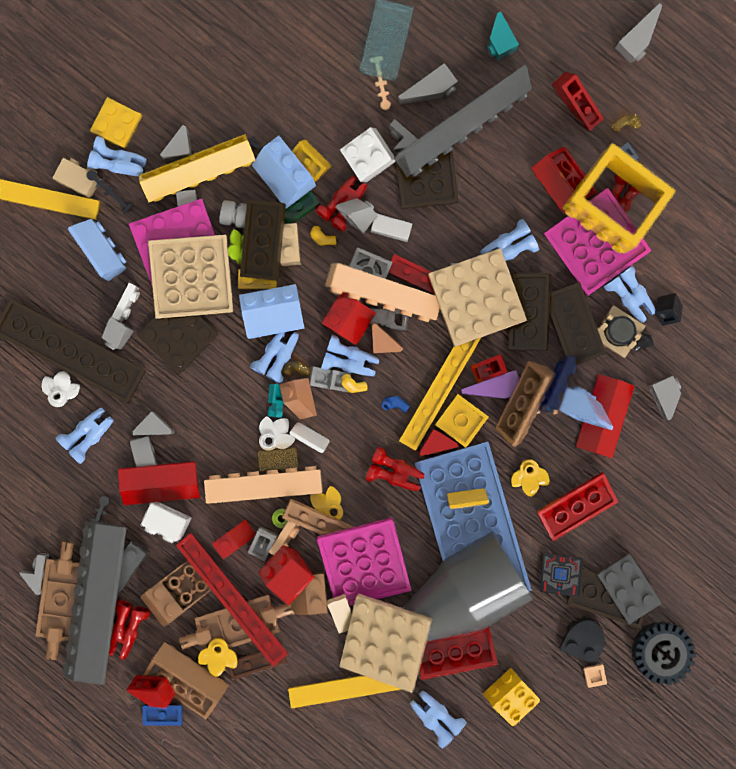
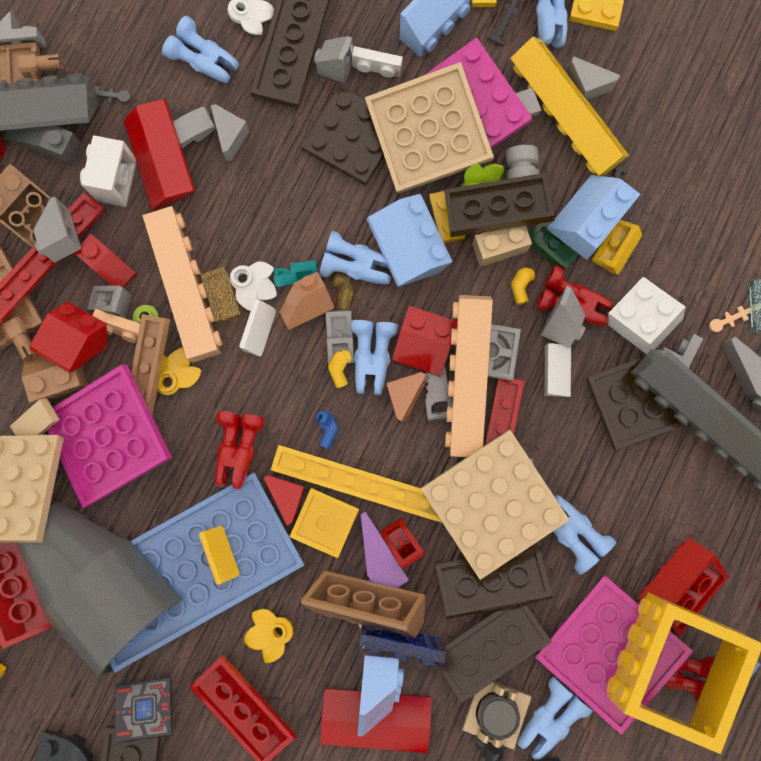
camera: 80 degrees right, 5 degrees down
(206, 568) = (56, 232): none -> light grey slope

